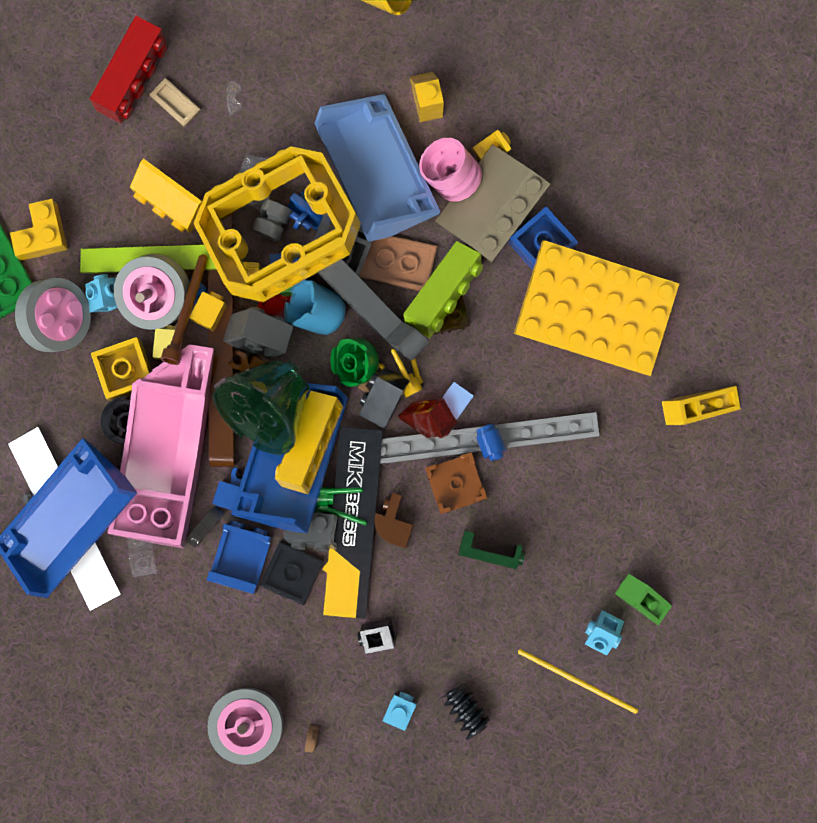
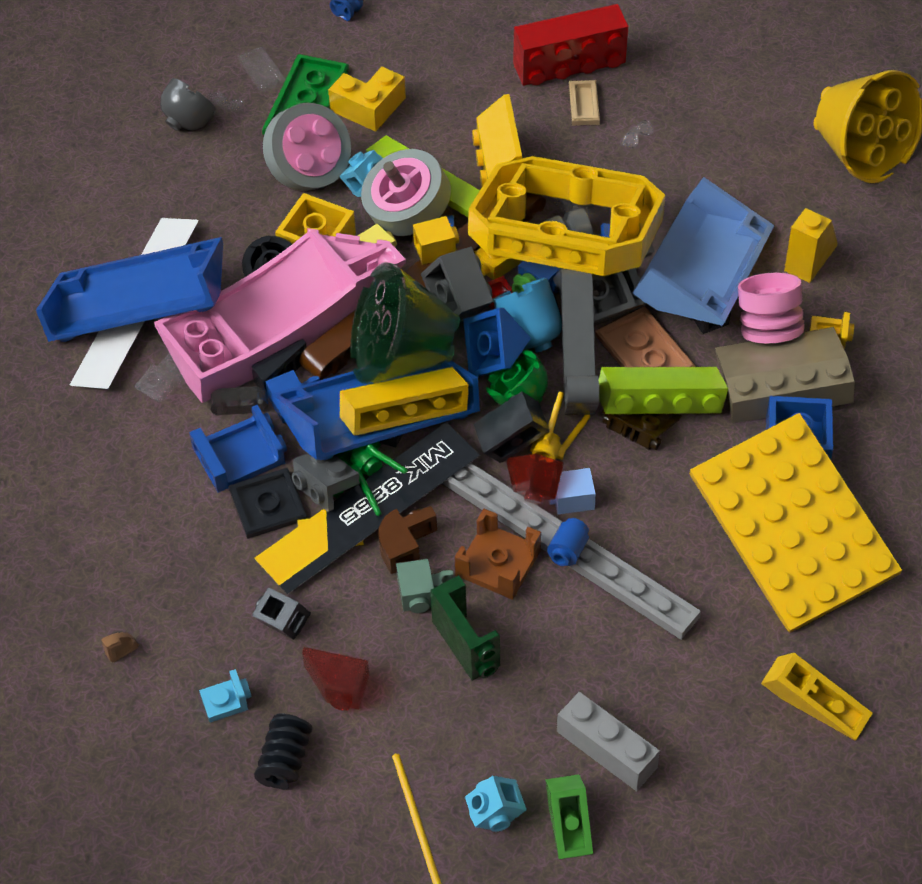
camera: 45 degrees right, 30 degrees down
(172, 353) = (366, 230): reddish brown piece -> none
(203, 484) = (278, 363): none -> black slope
(245, 726) = (78, 577): wheel -> none
(318, 352) = (493, 341): none -> blue slope
(432, 545) = (416, 582): none -> sand green brick
(448, 642) = (337, 677): none -> clear red slope
(624, 539) = (607, 741): none -> light grey brick

